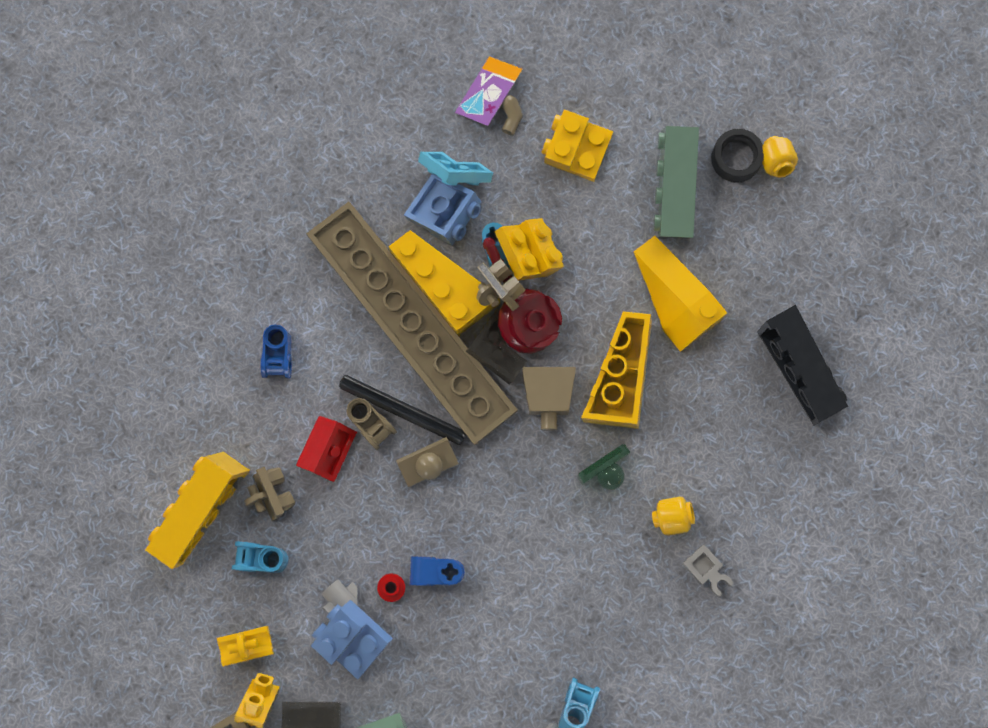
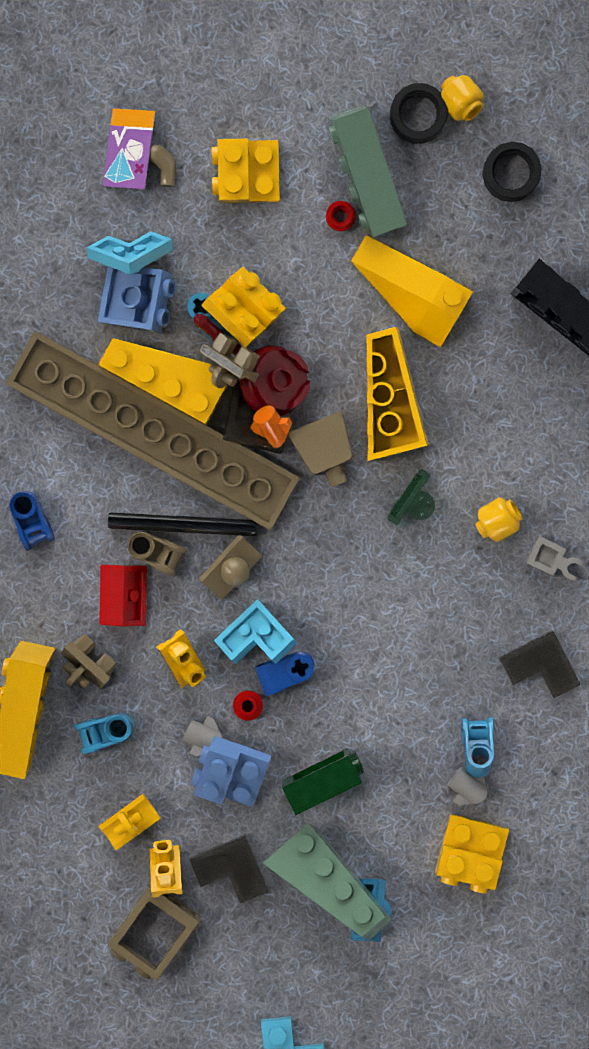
camera: 25 degrees left, 10 degrees up
(351, 522) = (182, 660): none -> yellow hips
(425, 522) = (255, 627): none -> medium azure plate
(427, 680) = (322, 781): none -> dark green window
(511, 354) = (271, 426): none -> orange piece
(643, 204) = (343, 206): none -> red plate
(668, 653) = (543, 656): none -> clear smoke plate
(802, 212) = (517, 149): none -> black tyre

